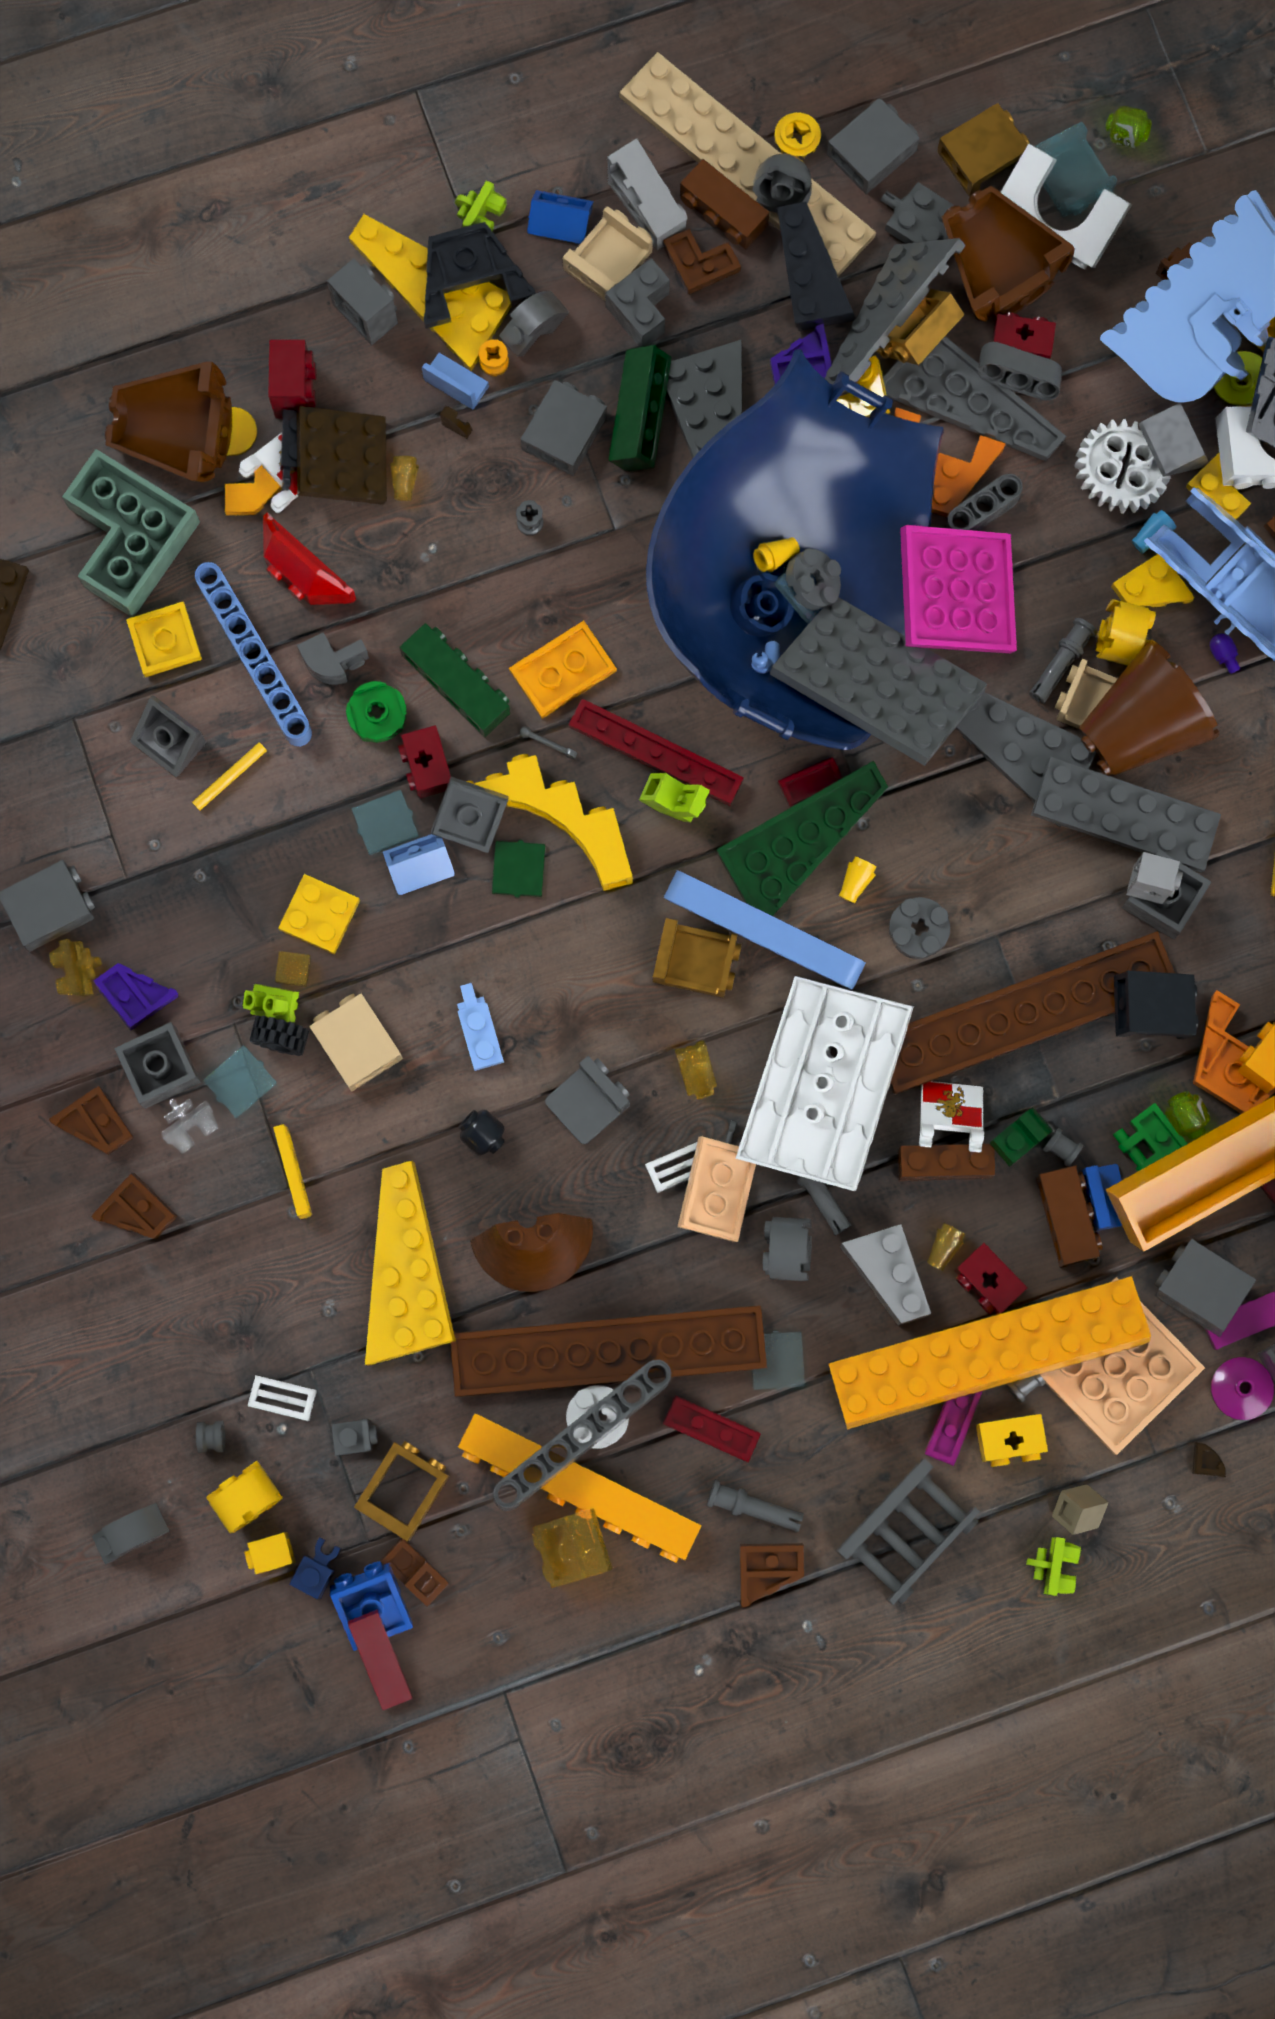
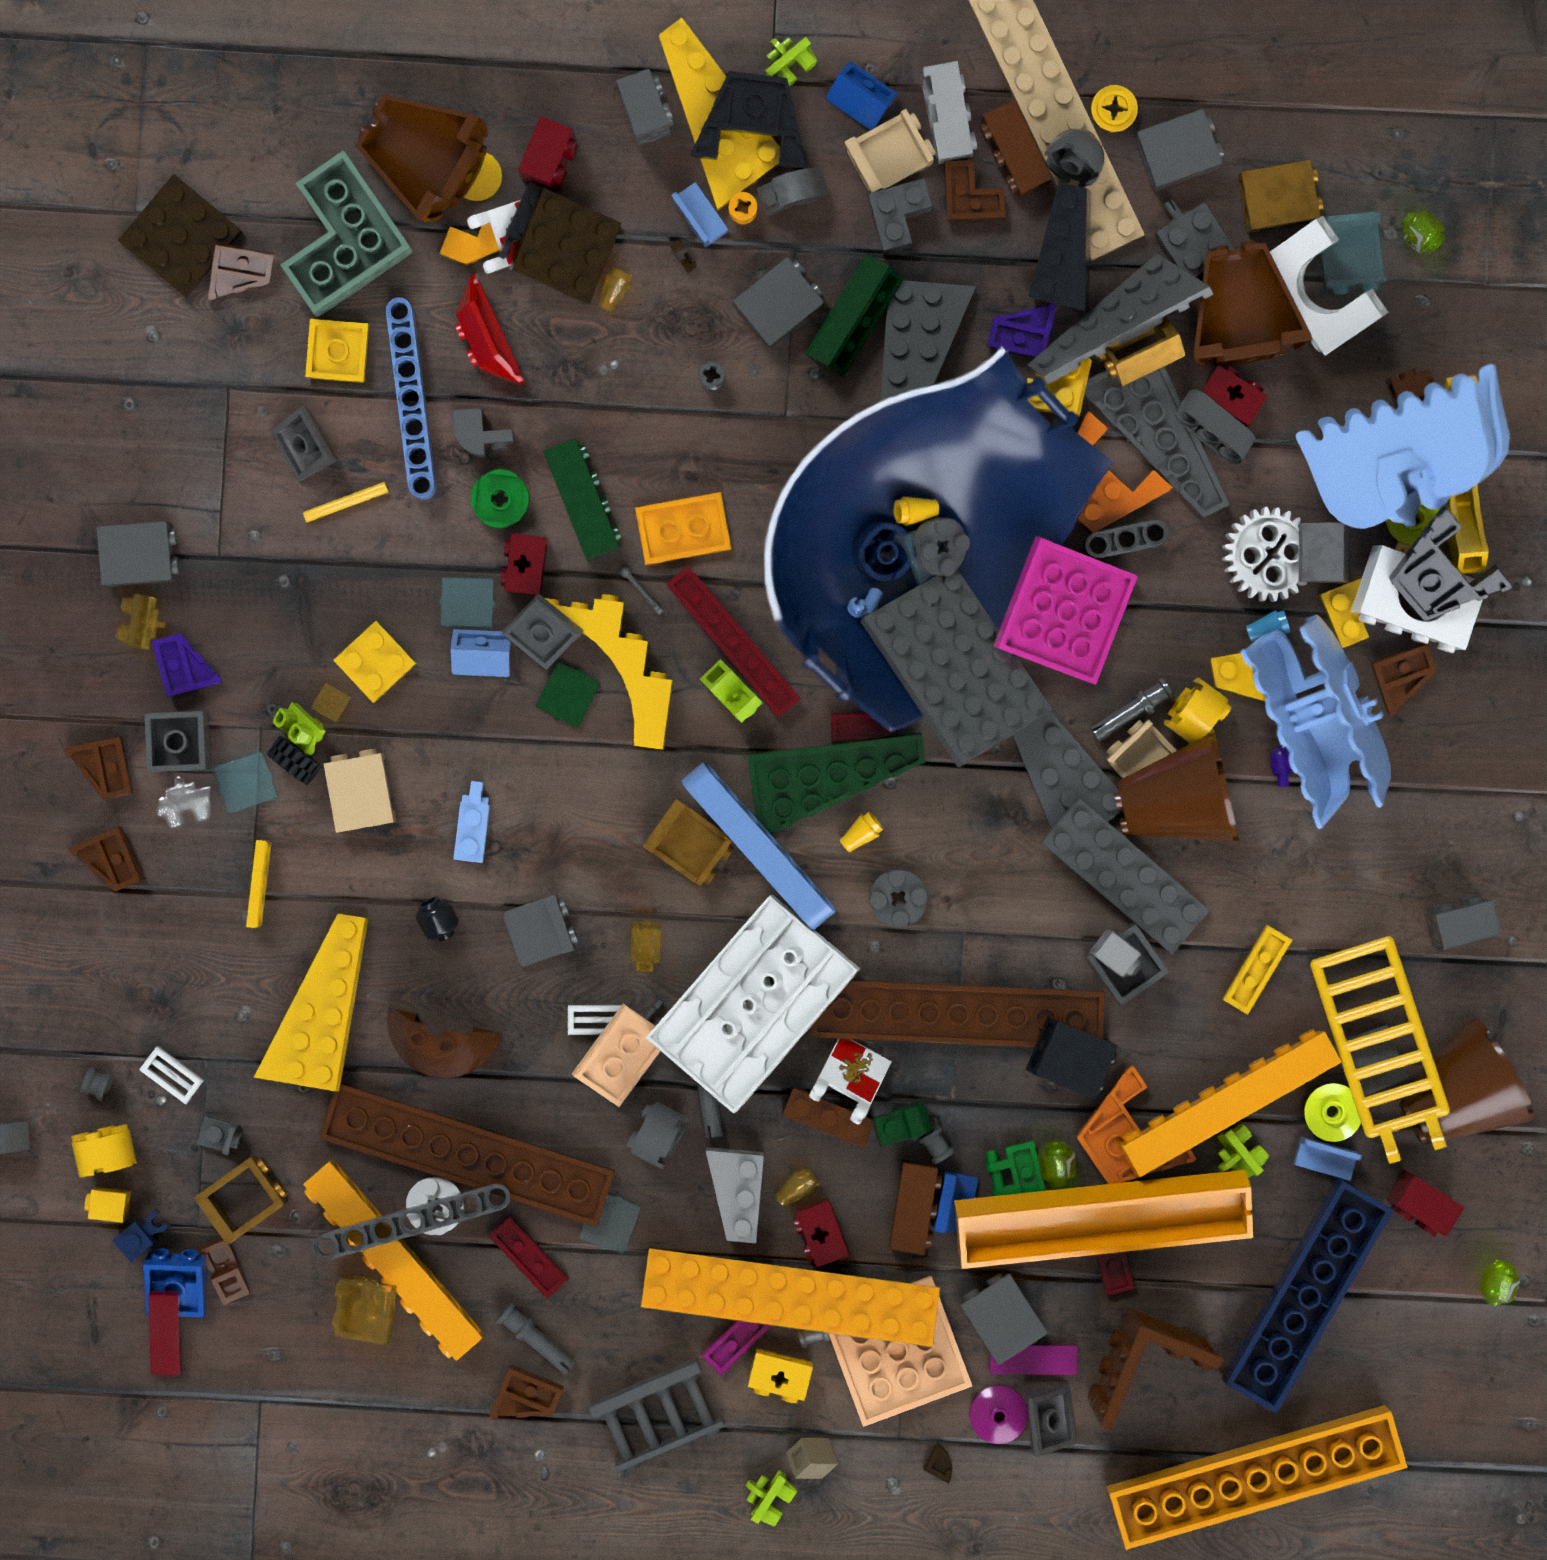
camera: 20 degrees right, 10 degrees up
(39, 603) = (238, 269): none -> wing

